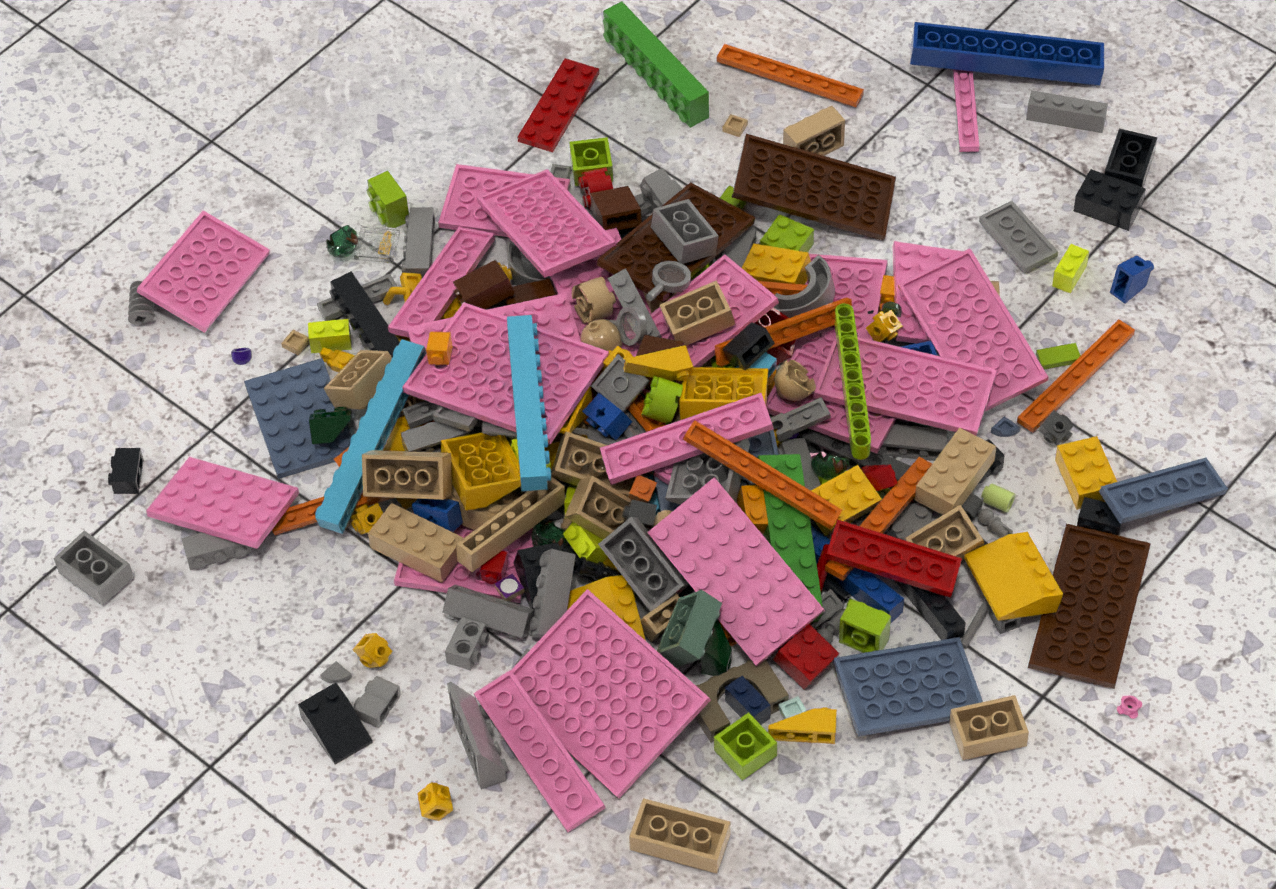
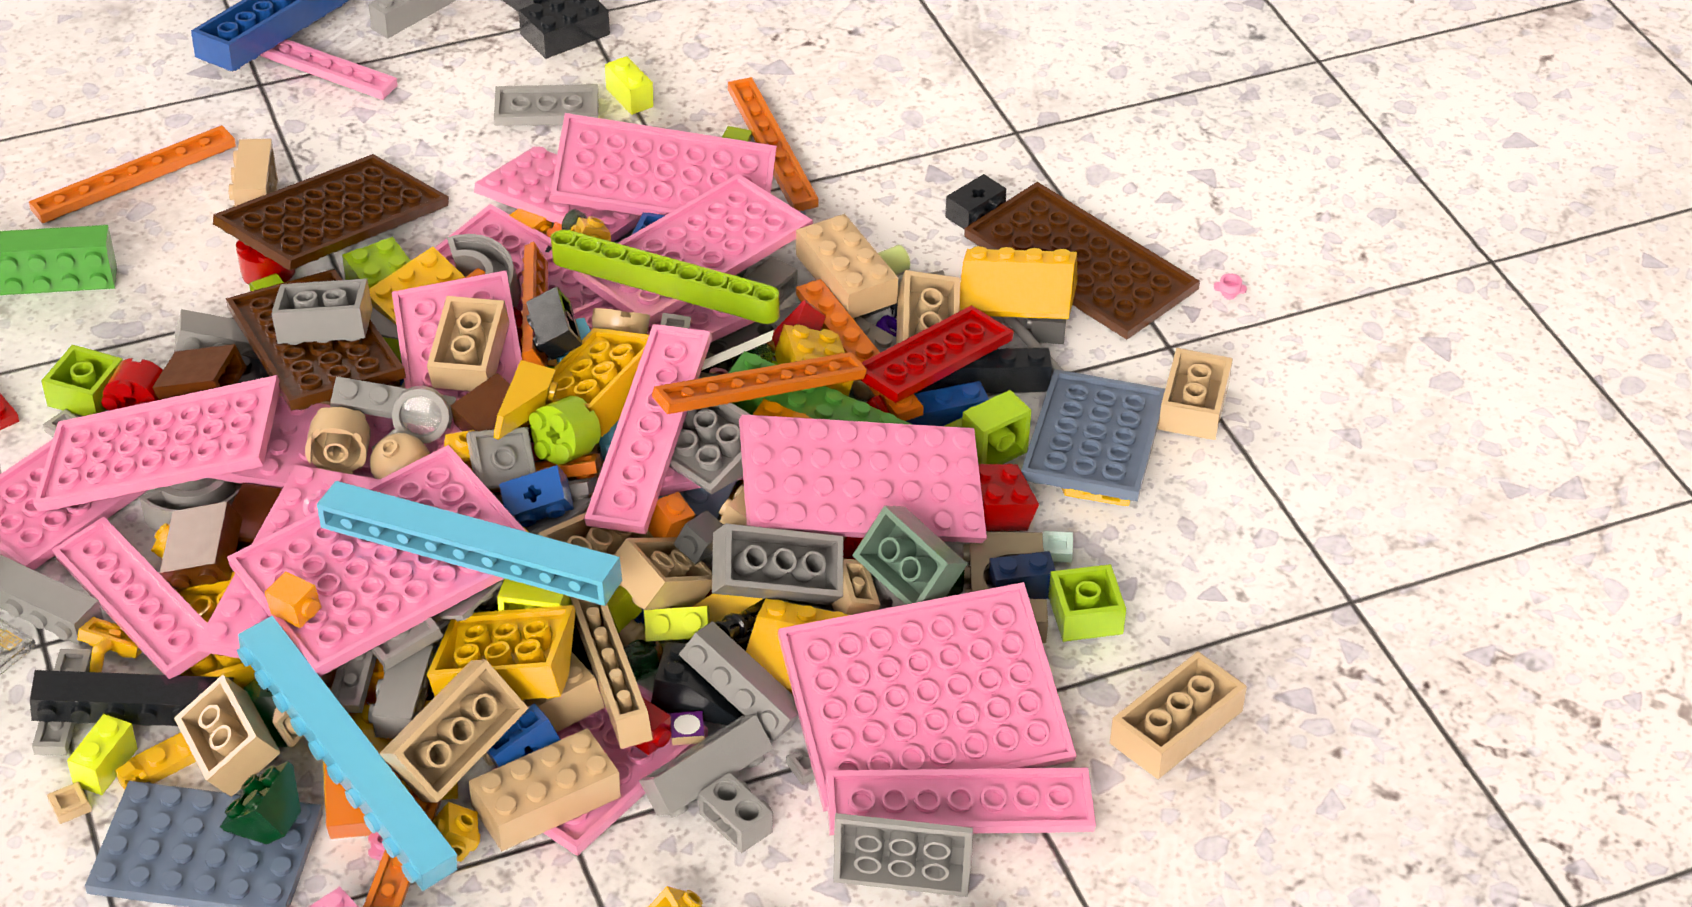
camera: 65 degrees left, 10 degrees down
(241, 355) = (31, 874): dark purple piece -> none
(669, 277) = (381, 351): light grey piece -> none
(735, 125) = (155, 249): tan tile -> none
(810, 726) = (1095, 534): yellow slope -> none
(815, 450) = (737, 350): none -> white sticker
(1056, 428) = (834, 181): dark grey brick -> none
(1084, 469) = (909, 186): yellow brick -> none
(1131, 278) = (685, 42): blue torso -> none
(1163, 490) = (982, 141): sand blue plate -> none

